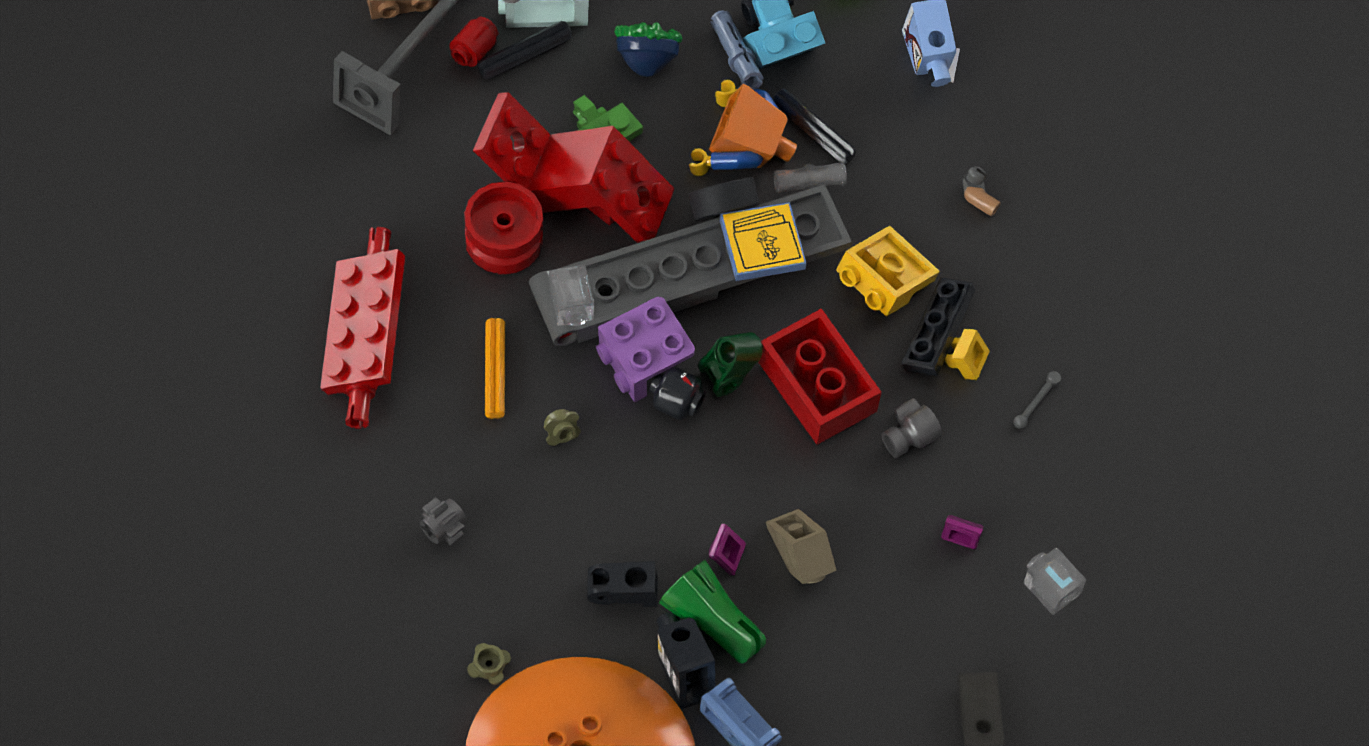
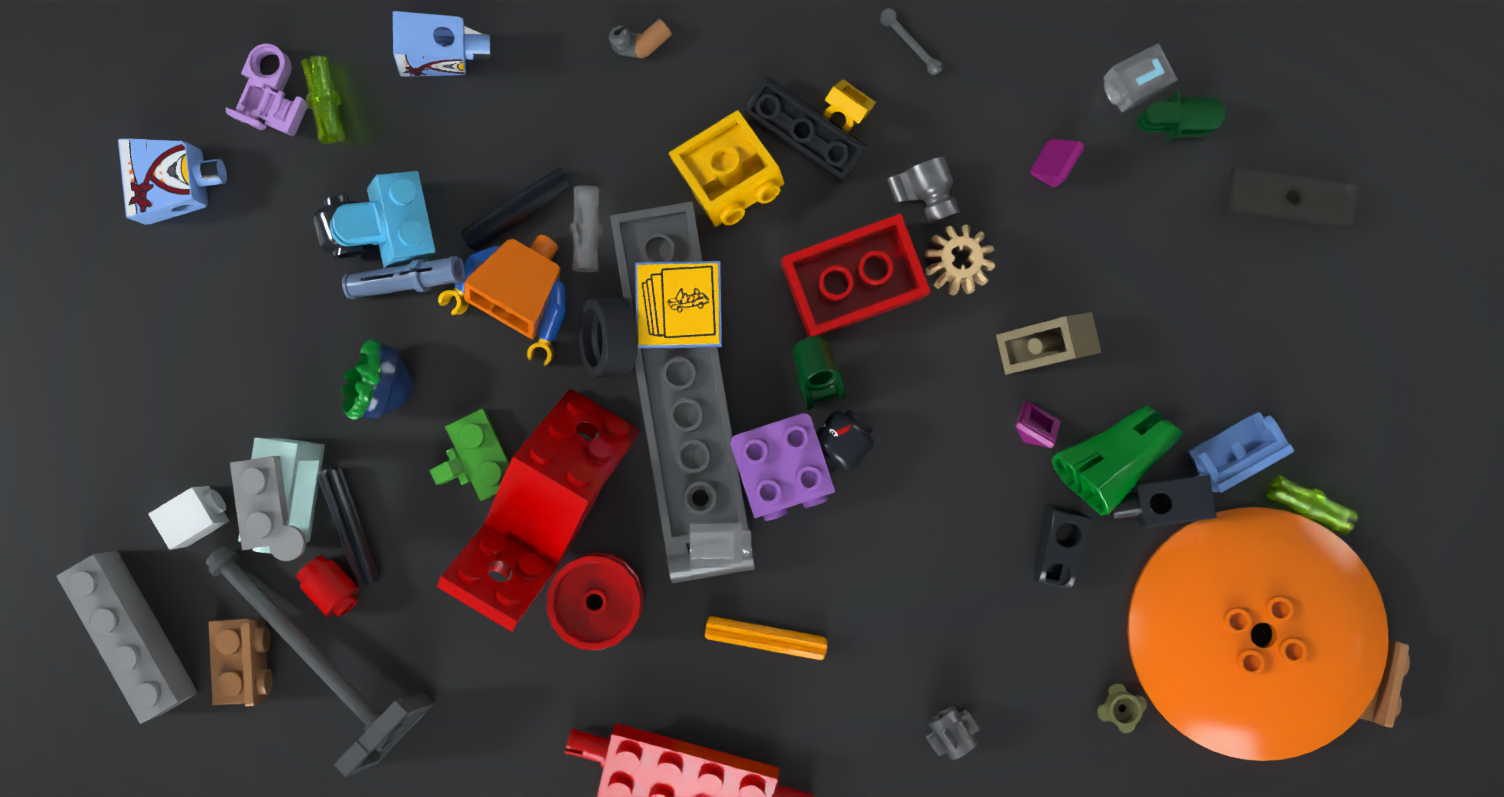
camera: 75 degrees left, 25 degrees up
(561, 426) = (857, 578): olive plate -> none
(869, 464) = (974, 260): none -> tan gear
(1030, 622) = (1183, 116): none -> dark green arm

